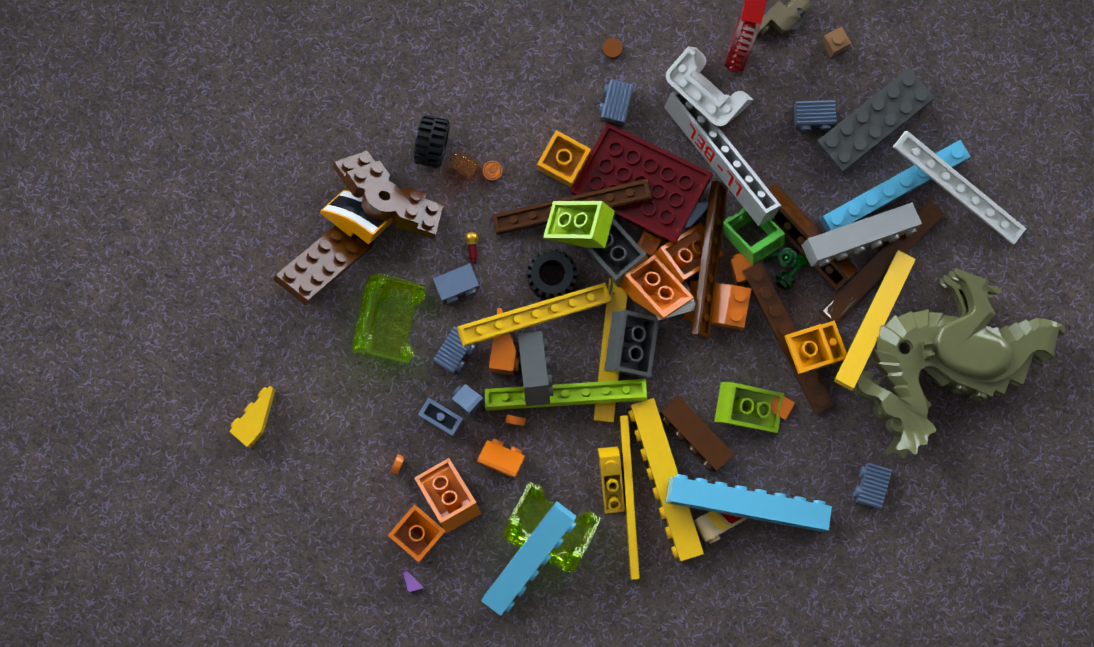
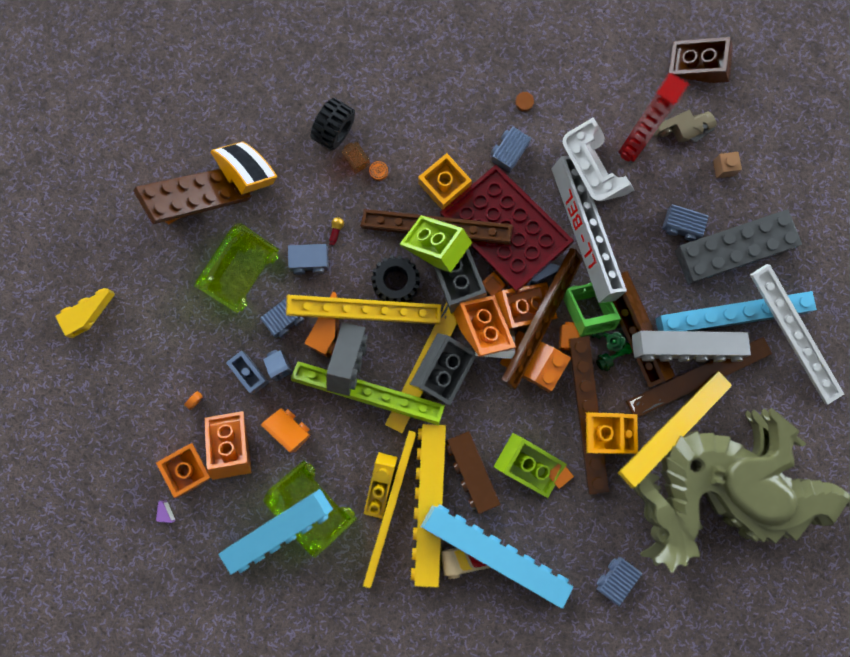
camera: 20 degrees right, 0 degrees up
(385, 199) = (271, 160): plate -> none
(515, 420) = (314, 399): orange tile -> none

